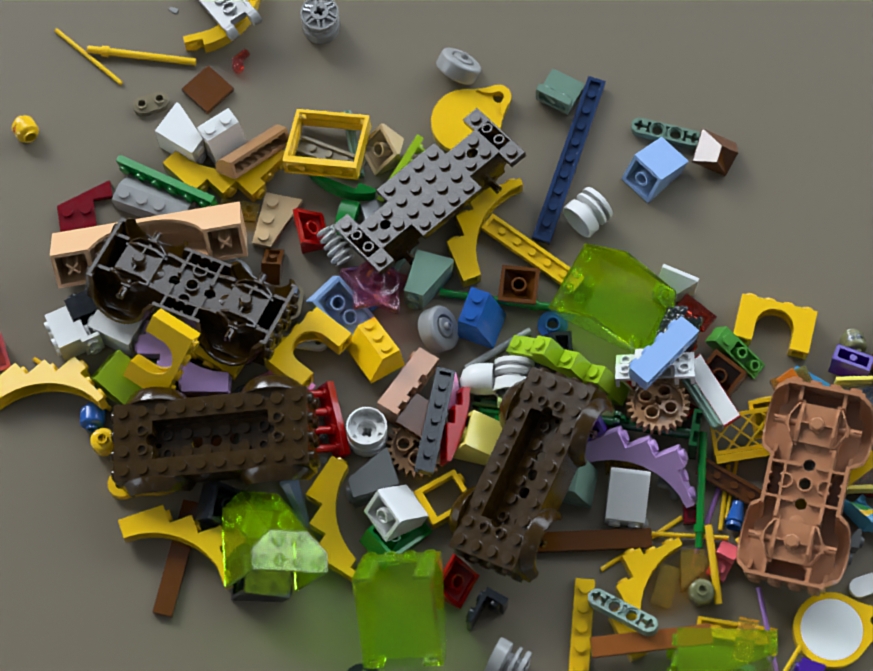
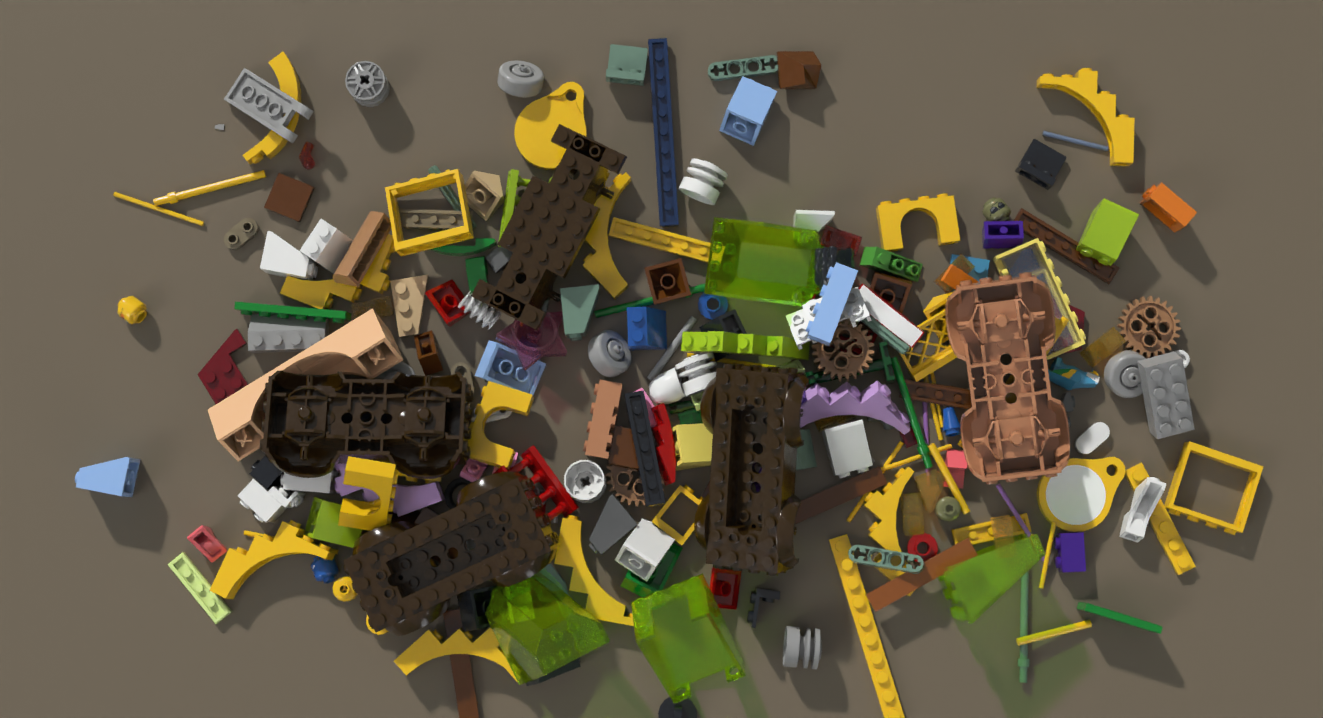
camera: 20 degrees left, 15 degrees up
(374, 350) = (560, 401): yellow slope -> none
(665, 612) = (929, 540): none -> red piece

